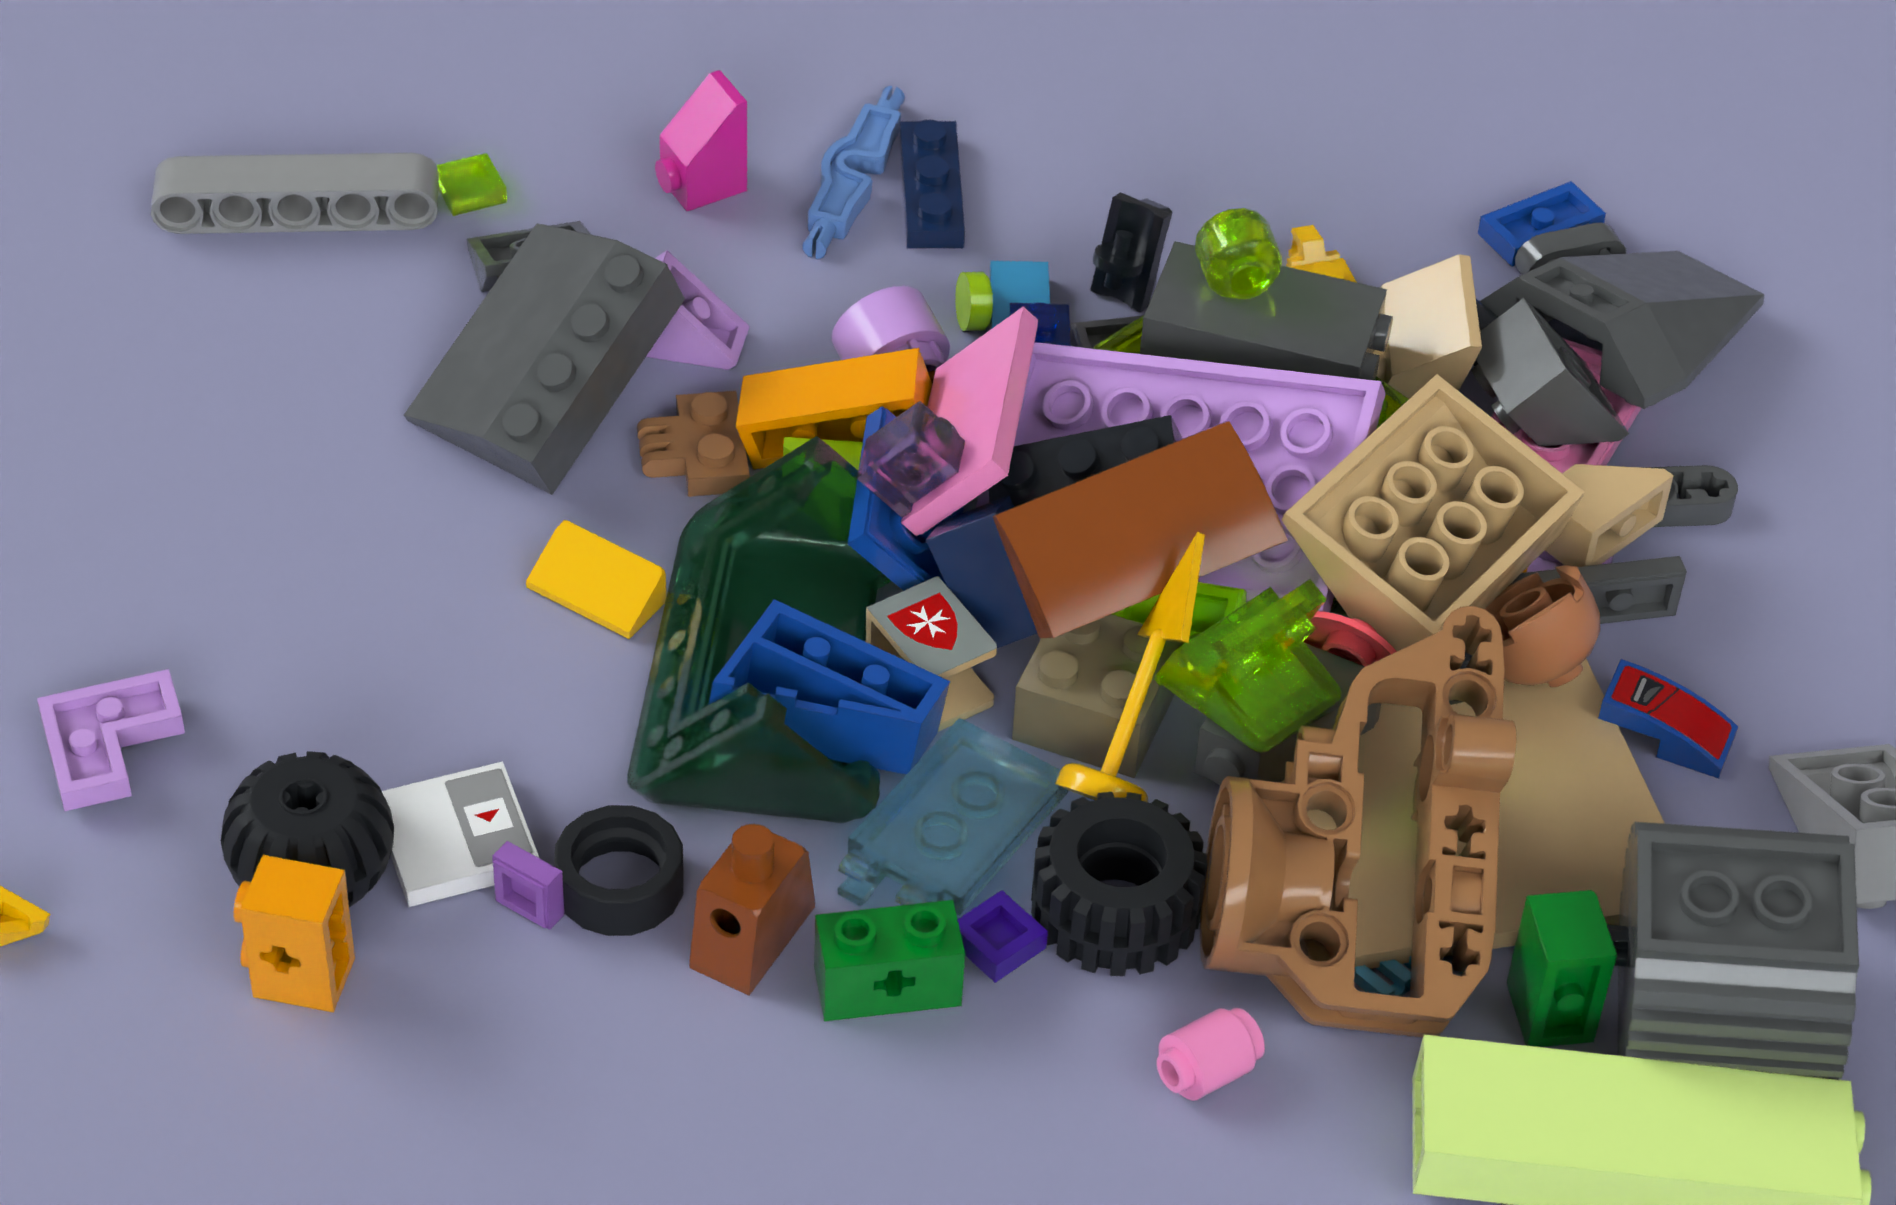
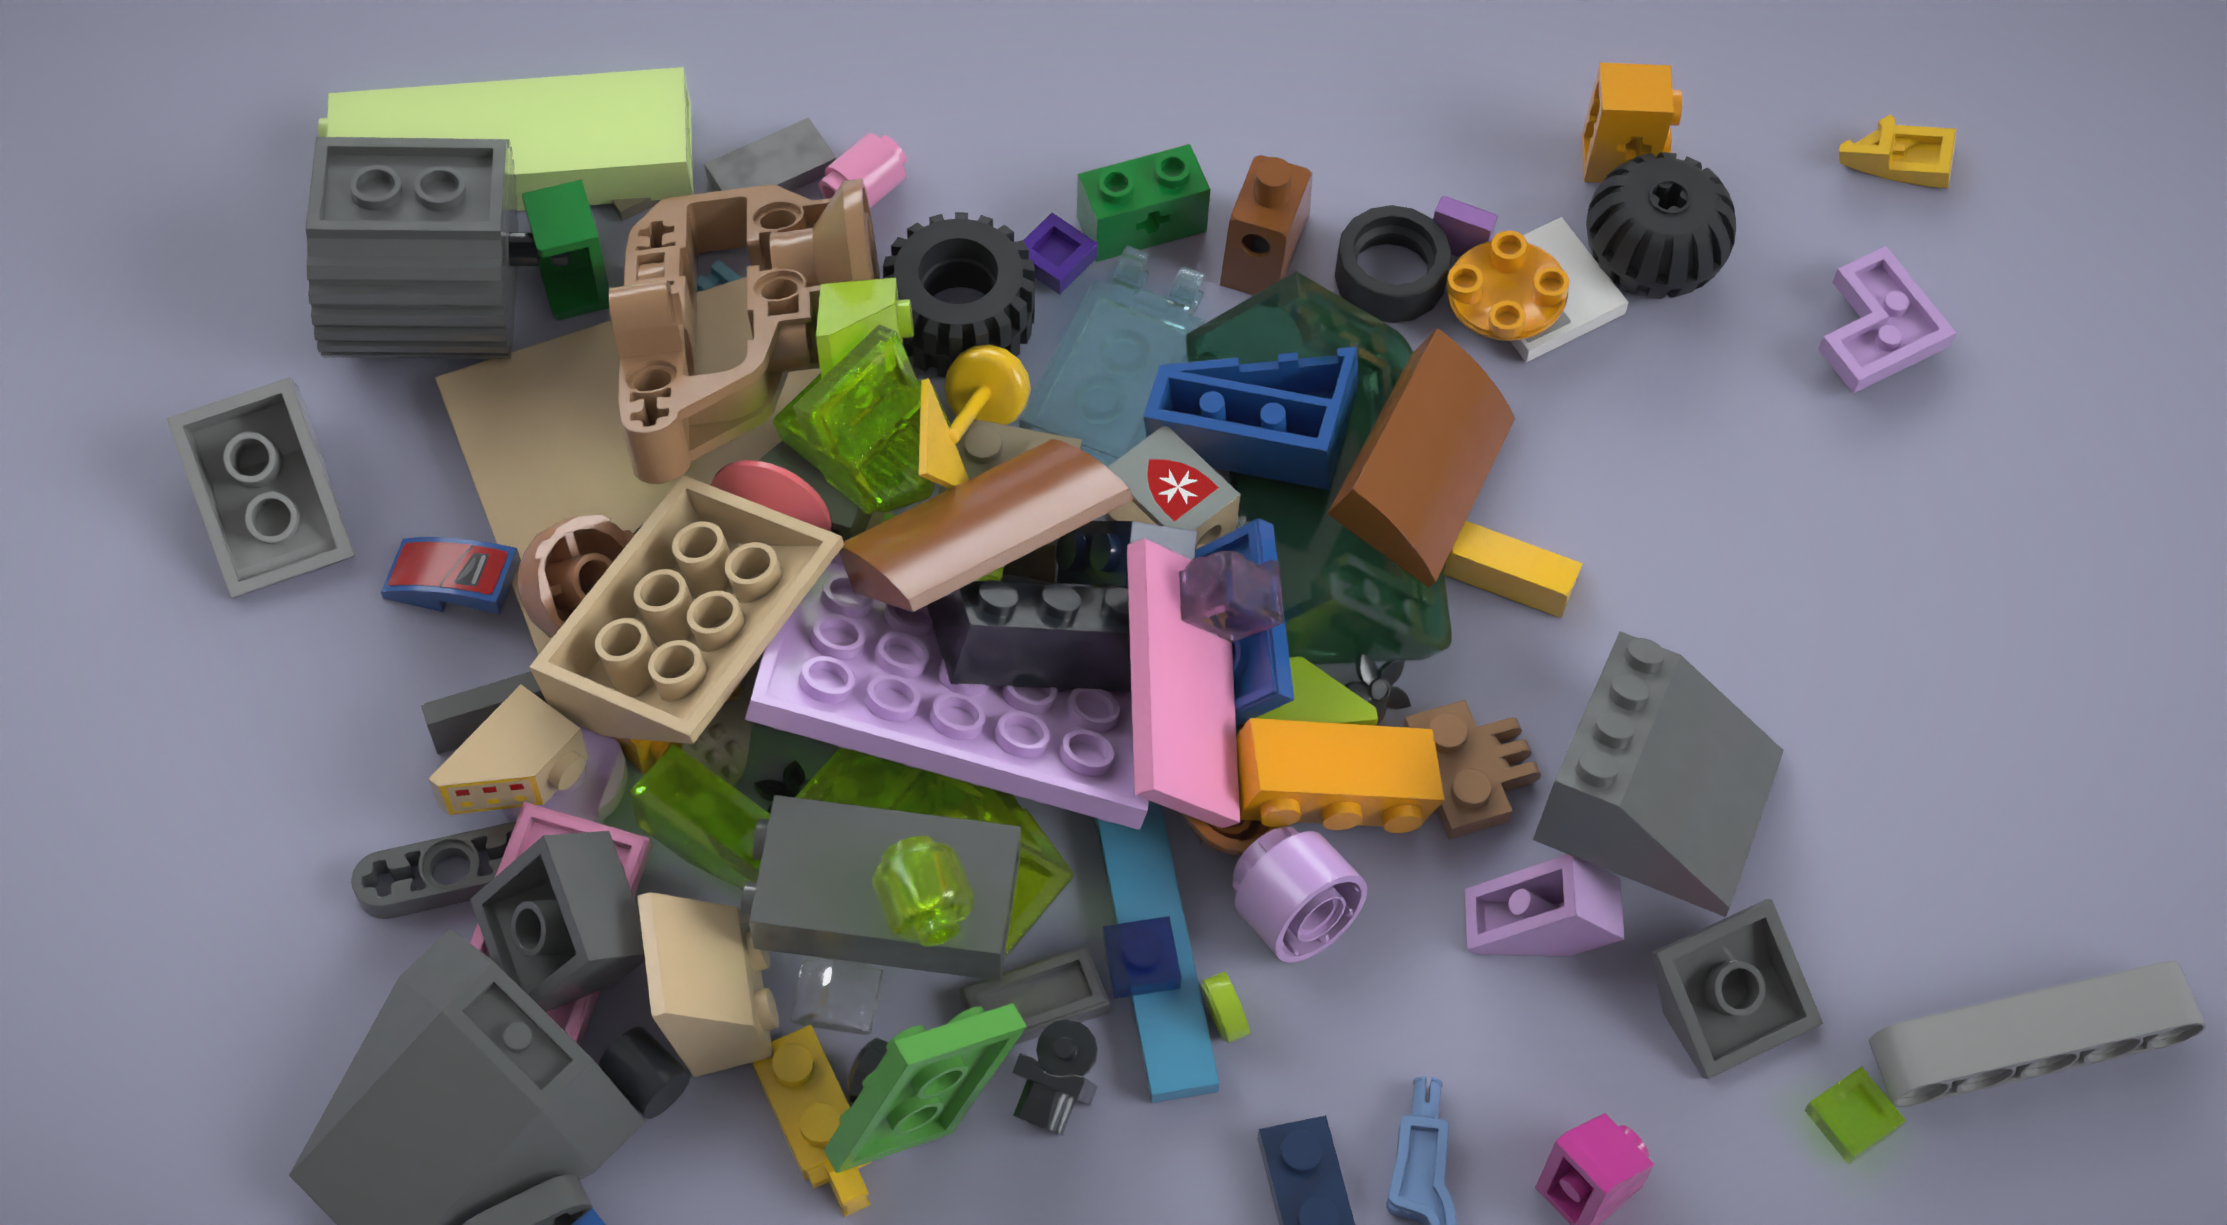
camera: 170 degrees right, 15 degrees up
(507, 797) = (1507, 288): none -> light orange dish
(668, 634) = (1425, 459): none -> dark orange slope
(1247, 725) = (852, 311): none -> lime slope
(1253, 175) = (924, 1085): none -> bright green plate
(1318, 1097) = (781, 159): none -> flat silver tile

